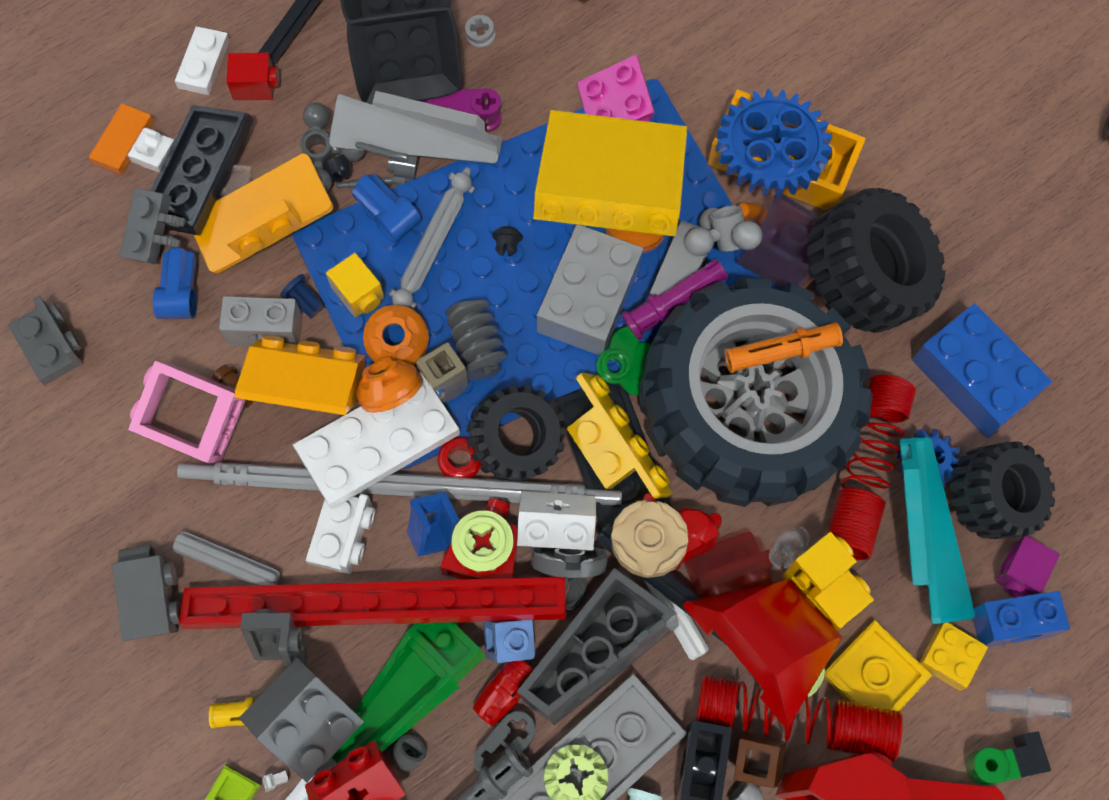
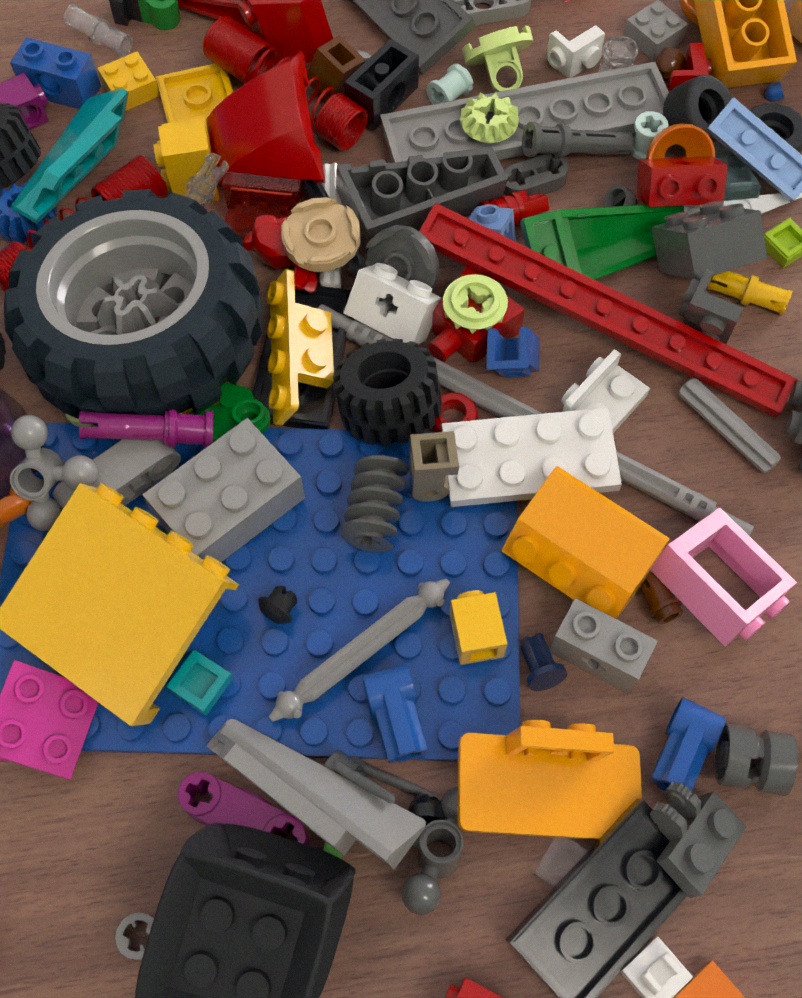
camera: 150 degrees left, 5 degrees down
(122, 295) = (772, 756): none -> dark grey wheel
(387, 385) = (488, 471): orange piece -> none
(414, 327) = (459, 564): orange piece -> none
(525, 165) = (200, 682): none -> teal plate
(798, 343) = (69, 283): orange pin -> none

